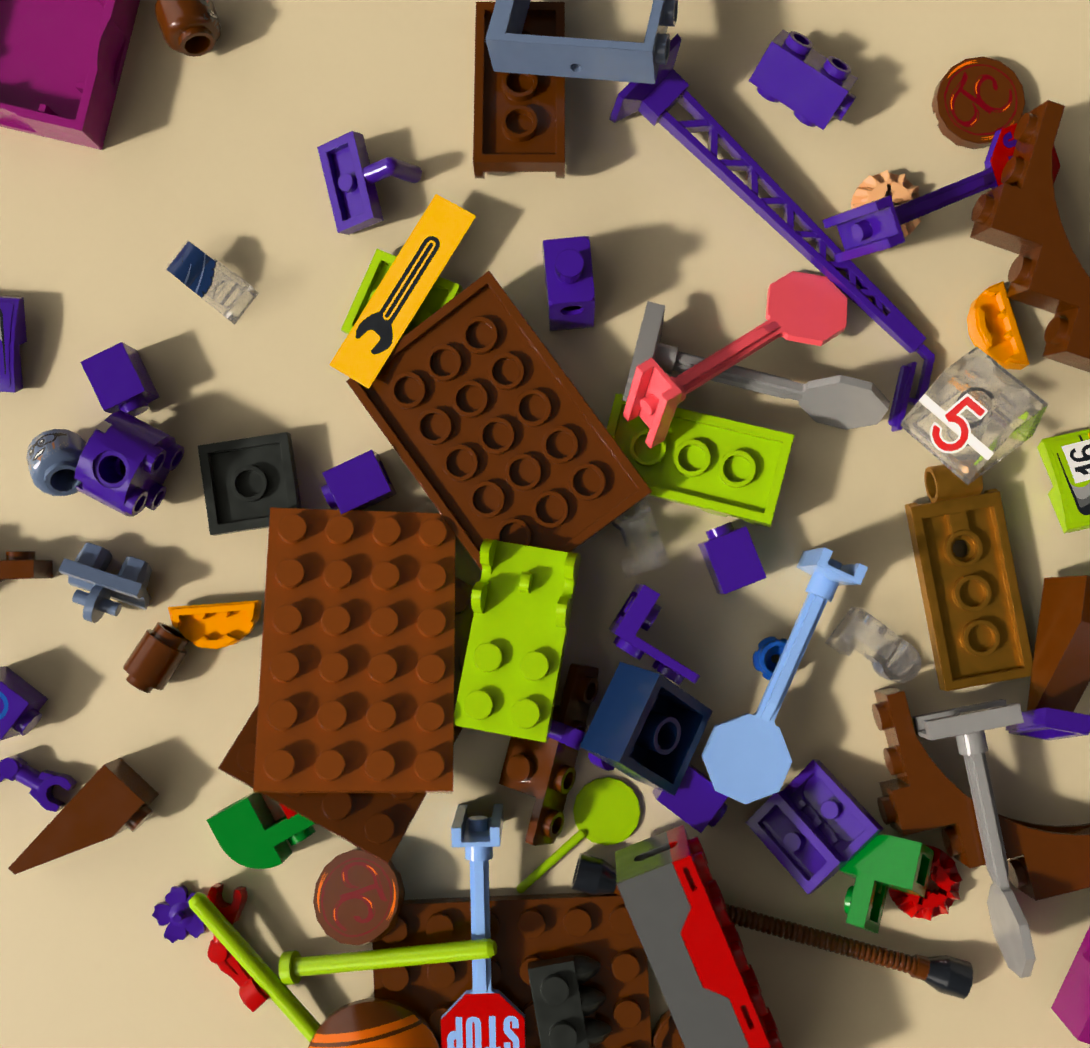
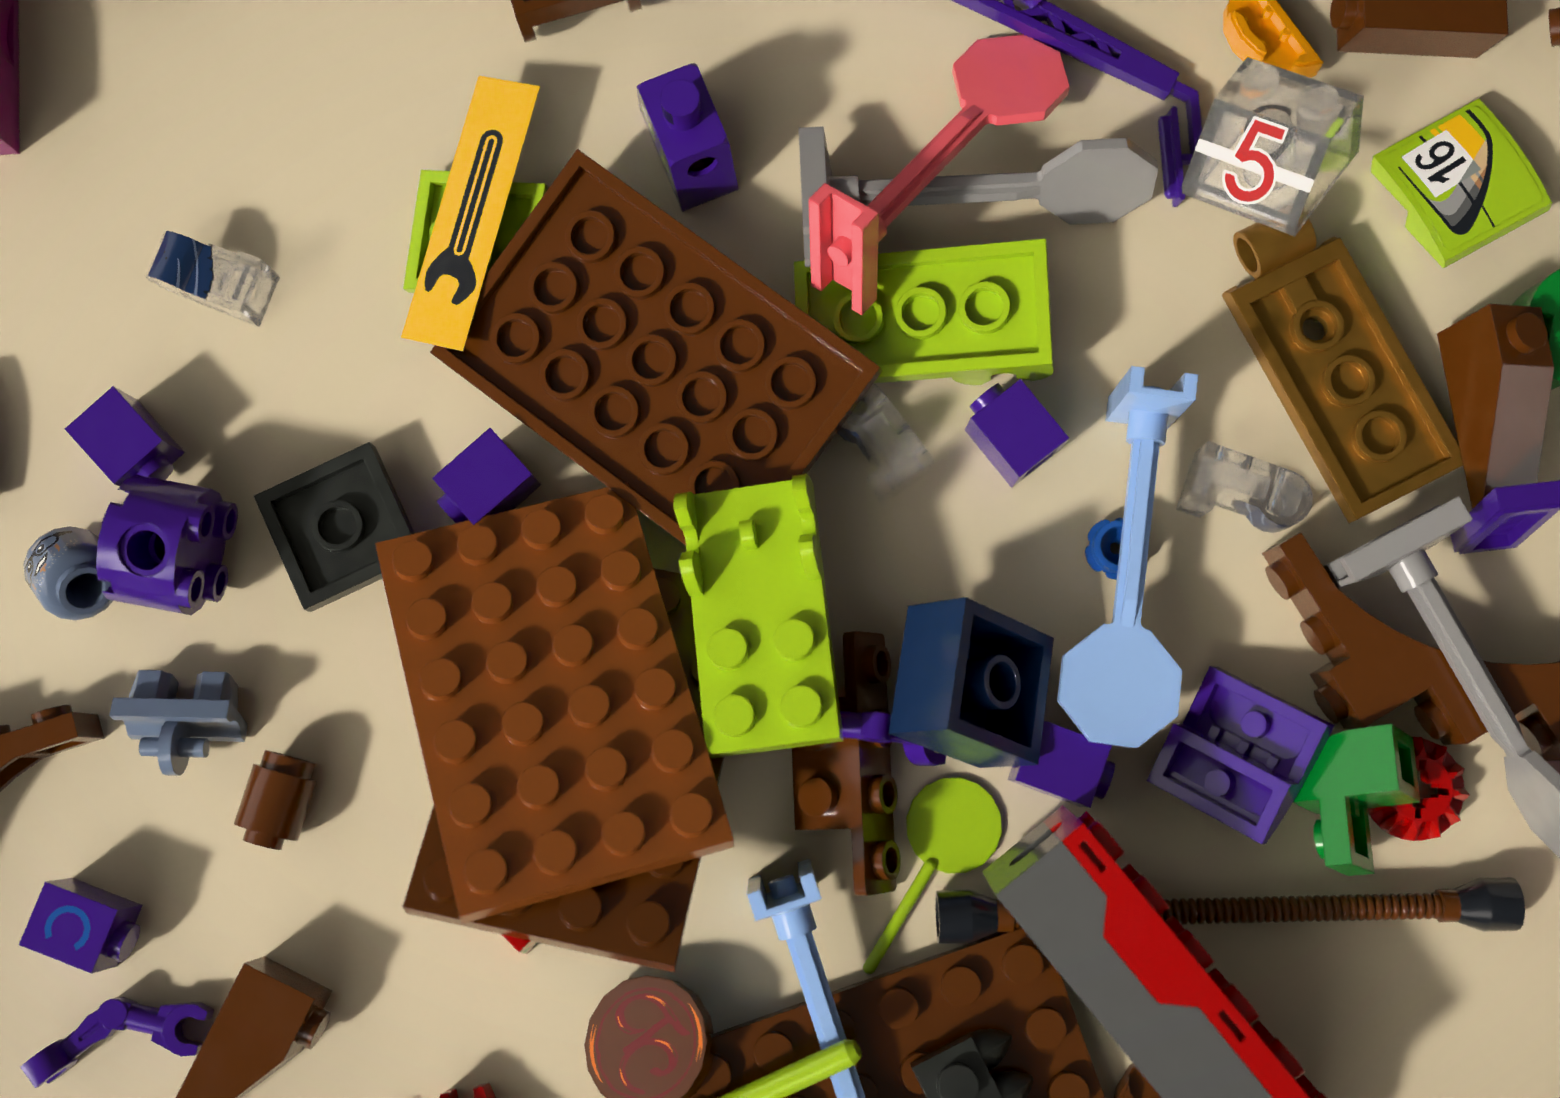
camera: 15 degrees left, 5 degrees down
(216, 624) = (346, 728): light orange plate -> none
(253, 836) = (477, 1003): green brick -> none
(353, 179) = (363, 90): dark purple plate -> none
(640, 612) = (918, 578): dark purple bracket -> none

